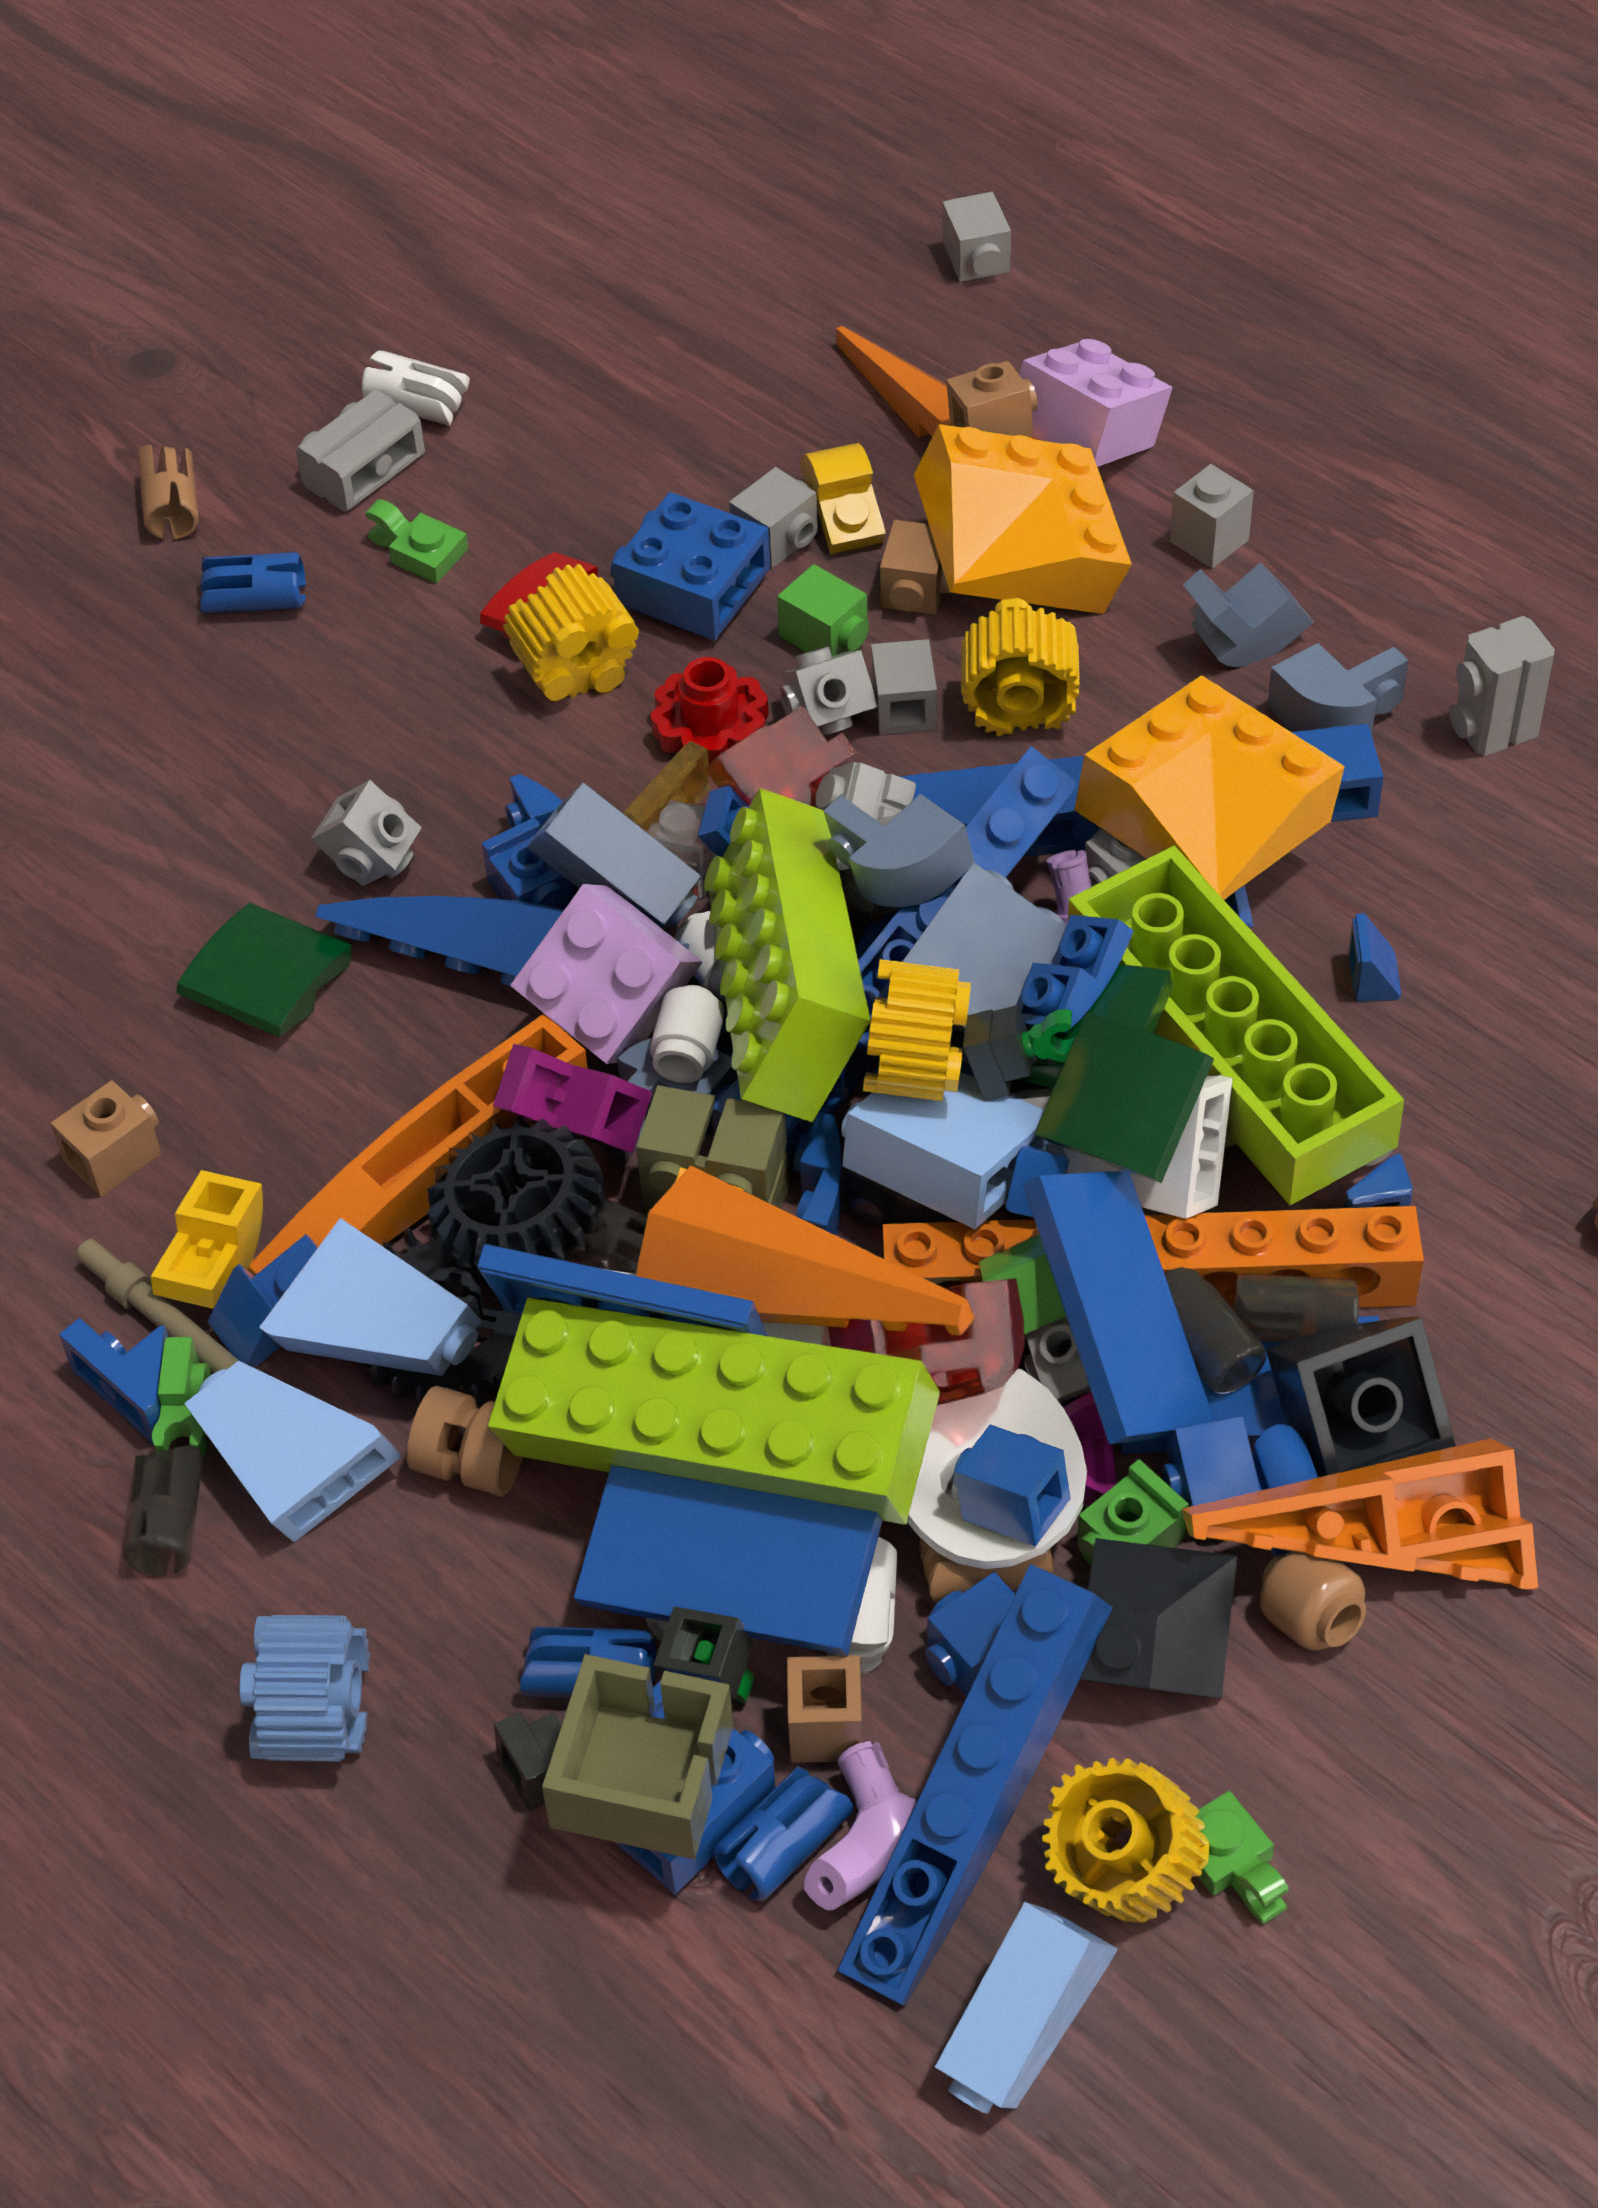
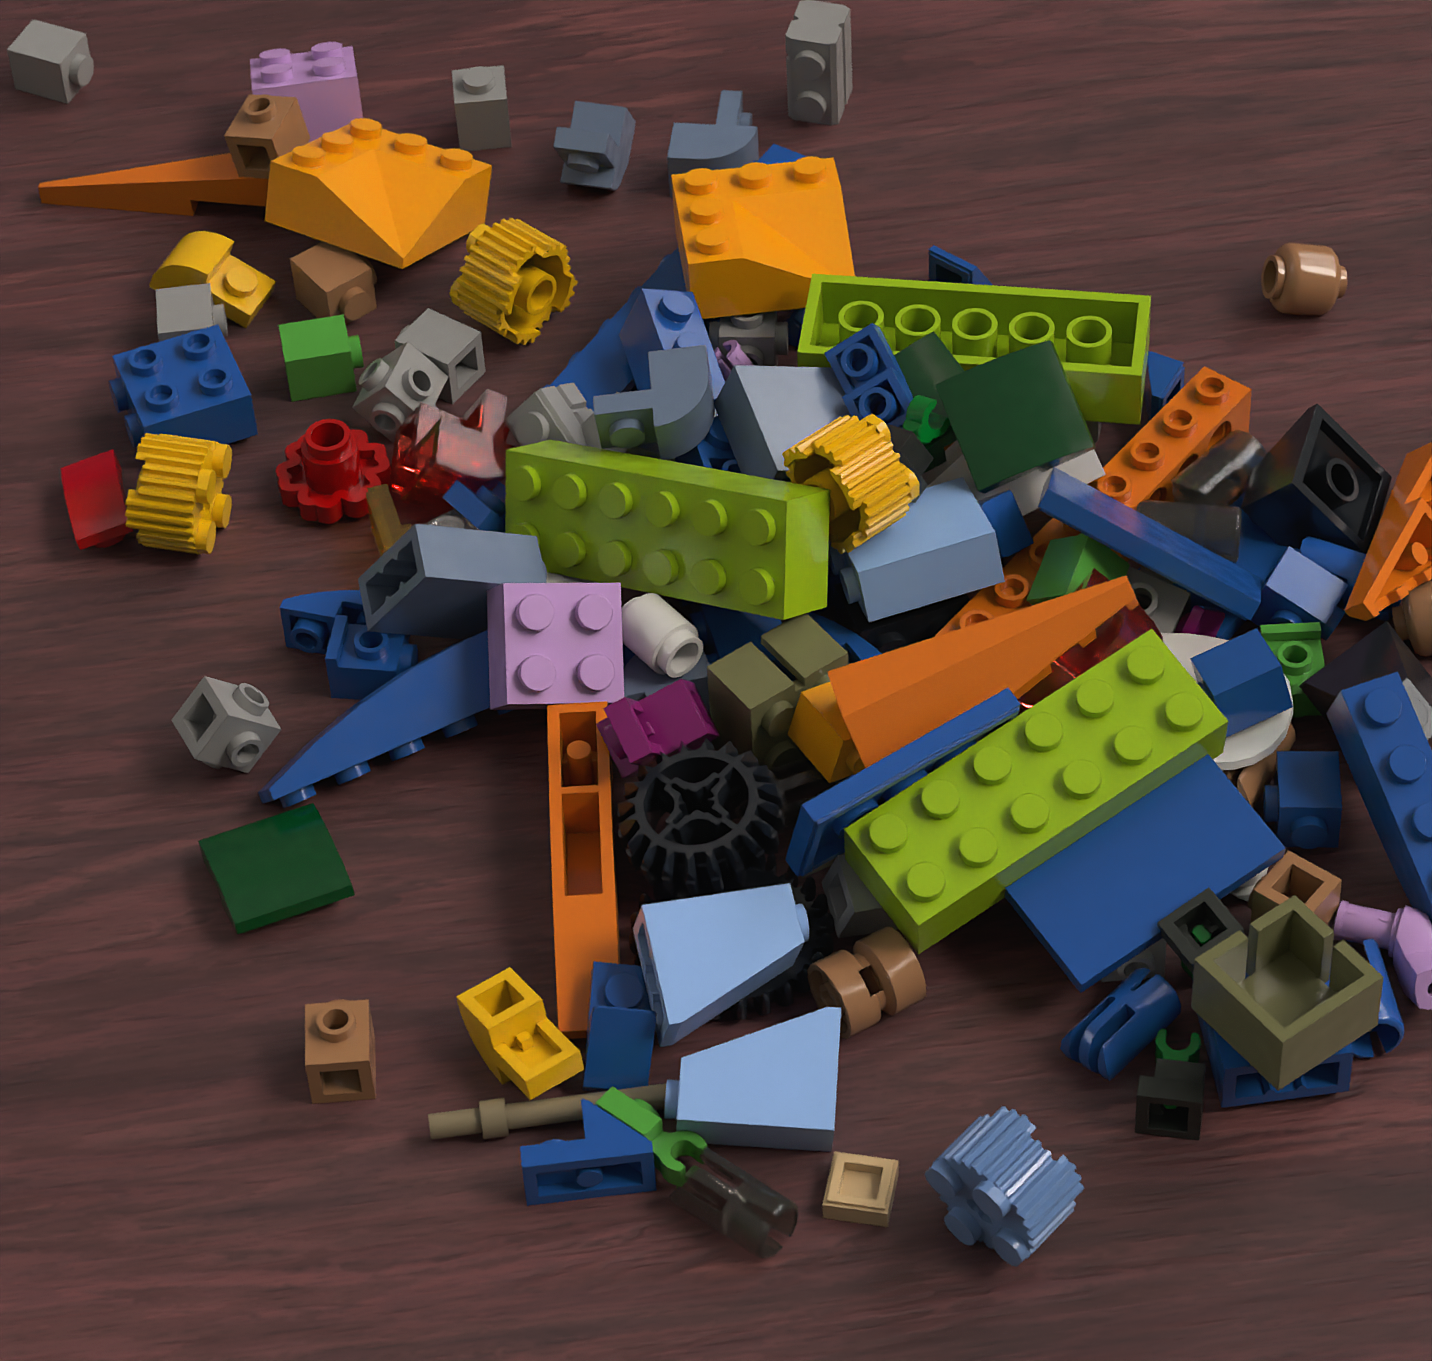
camera: 50 degrees left, 5 degrees down
(262, 1587) = (860, 1189): none -> tan tile

